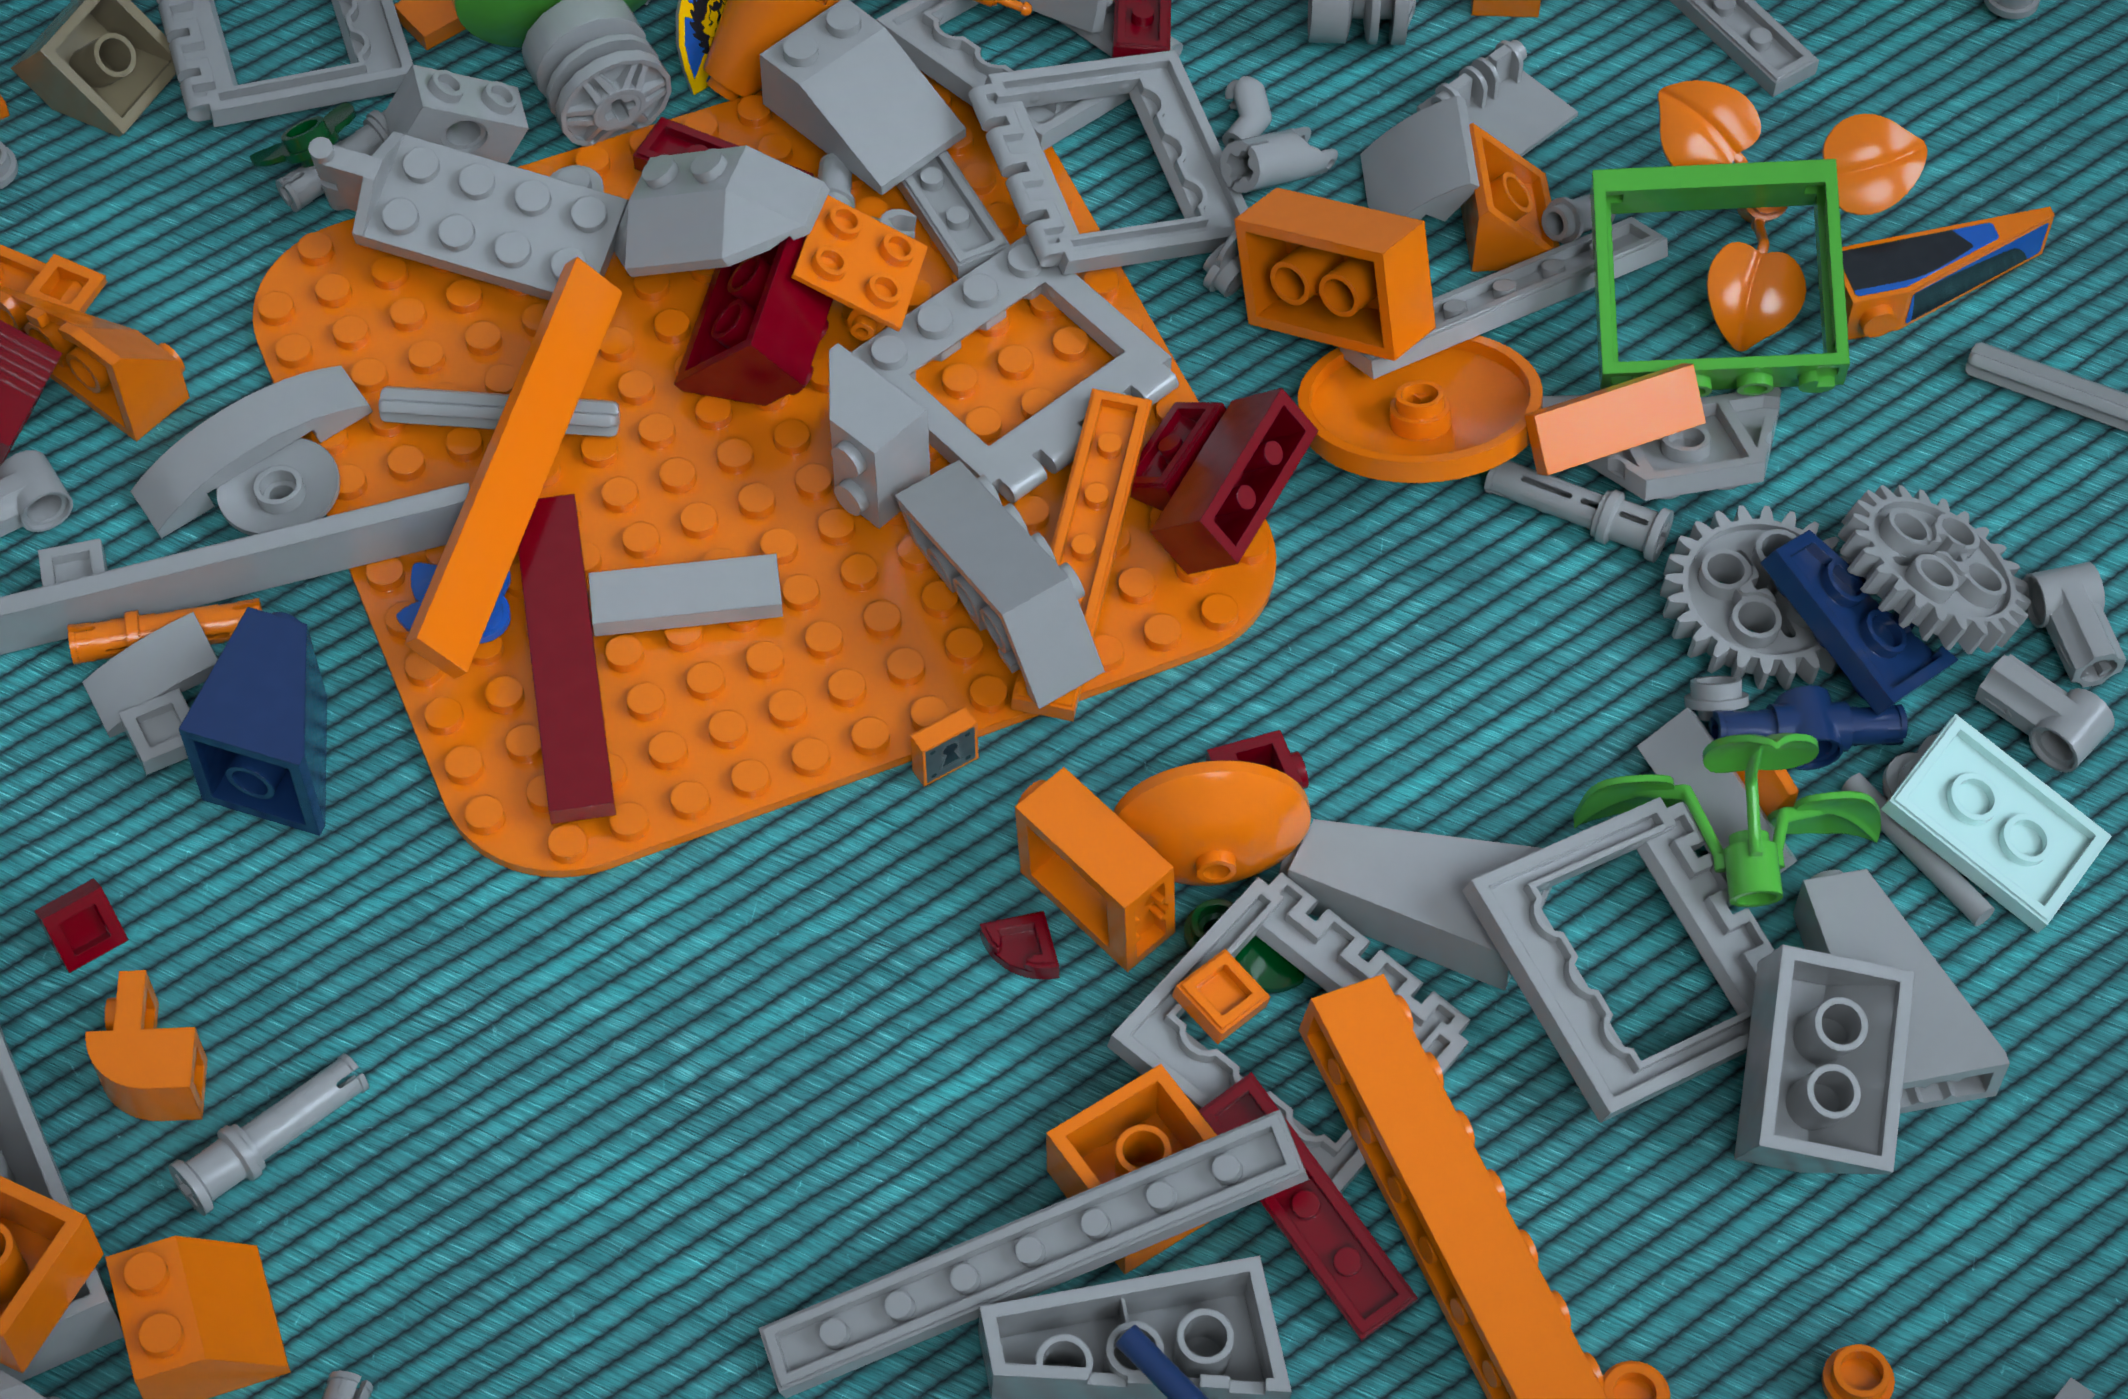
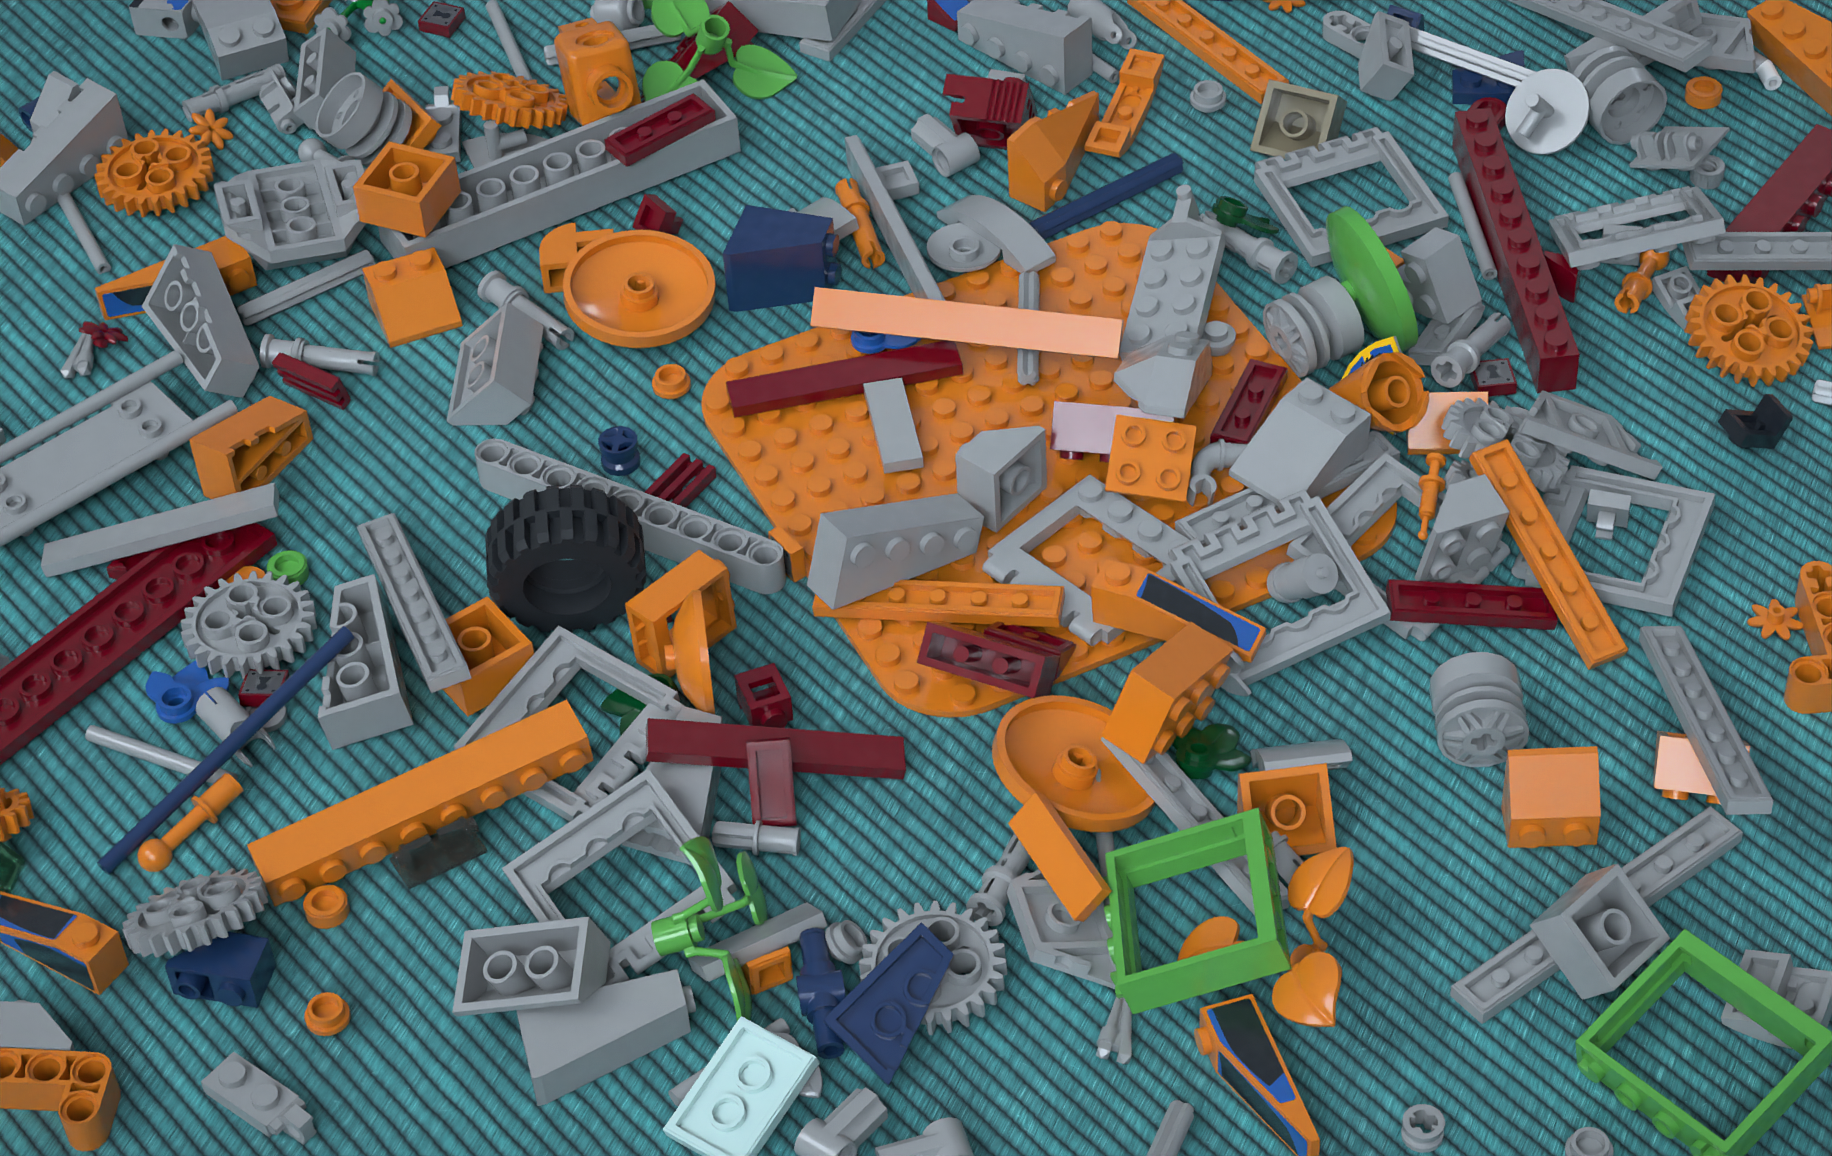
camera: 90 degrees right, 10 degrees down
(187, 304) = (1108, 196): none -> dark blue axle
(280, 939) = (639, 288): none -> orange dish
(425, 1175) = (497, 370): none -> light grey slope
(459, 112) = (1256, 268): light grey brick -> none
(502, 910) = (671, 381): none -> orange plate
(656, 966) = (619, 451): none -> dark blue wheel
(770, 888) = (672, 481): none -> dark red tile
(813, 991) = (667, 527): none -> light grey beam
(1008, 998) = (558, 524): none -> black tyre
(1100, 132) = (1302, 578): none -> light grey piece
(1166, 272) = (1159, 608): none -> orange slope
(1221, 996) = (585, 674): orange tile -> none
(1252, 107) = (1362, 677): light grey arm -> none
(1273, 160) = (1305, 681): light grey piece -> none
(1321, 1225) = (457, 724): dark red tile -> none
(1378, 761) = (811, 749): none -> dark red tile
(1443, 761) = (771, 781): none -> dark red tile
(1507, 99) = (1393, 815): light grey hinge -> none
(1518, 796) = (757, 837): none -> light grey axle
(1559, 1252) = (436, 855): none -> clear smoke hinge
(1856, 419) = (1117, 1033): none -> light grey piece
(1934, 569) = (911, 1062): light grey gear -> none
(1991, 122) = (1431, 1119): none -> light grey bush

